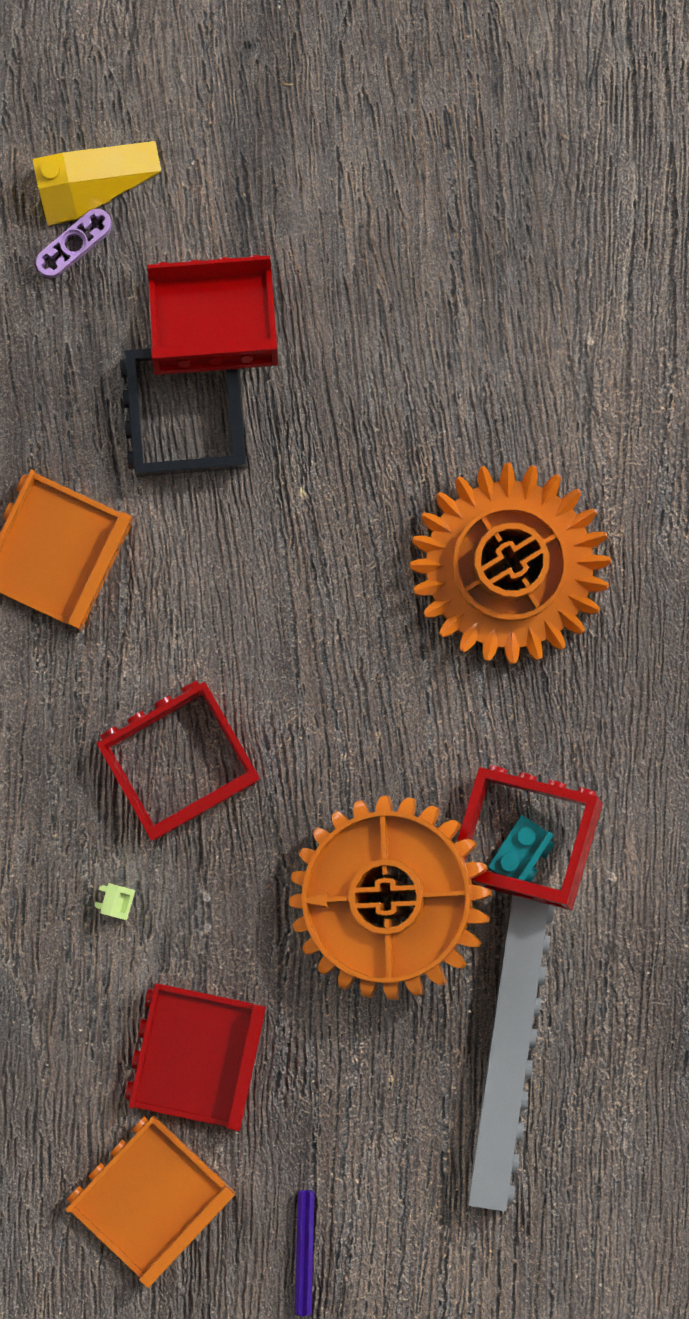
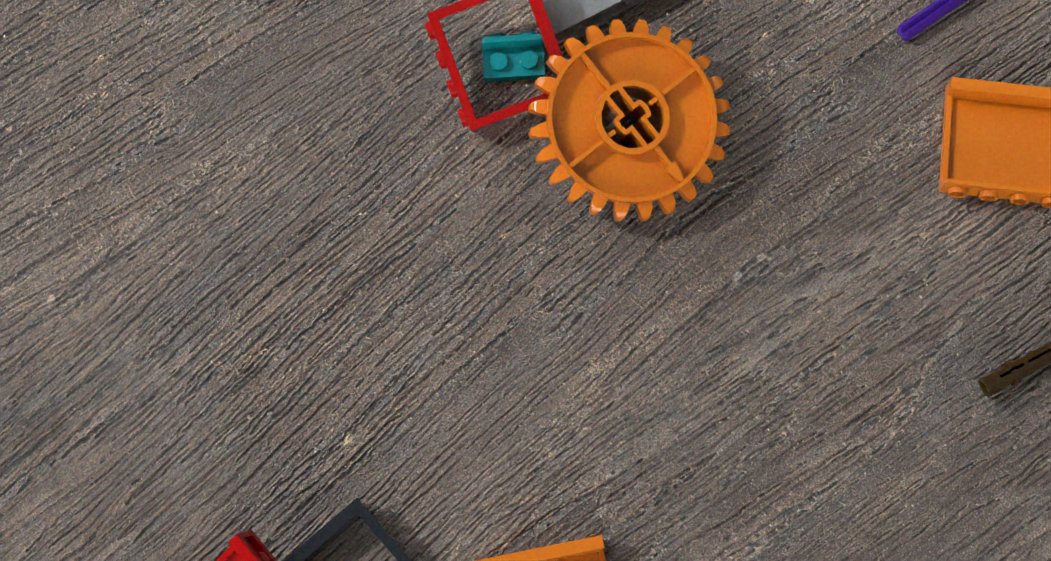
camera: 125 degrees left, 10 degrees down
(116, 901) = (798, 339): yellowish green tile -> none
(141, 721) = (664, 327): red window -> none
(195, 1056) = (867, 188): red panel -> none
(474, 602) = (301, 261): orange gear -> none

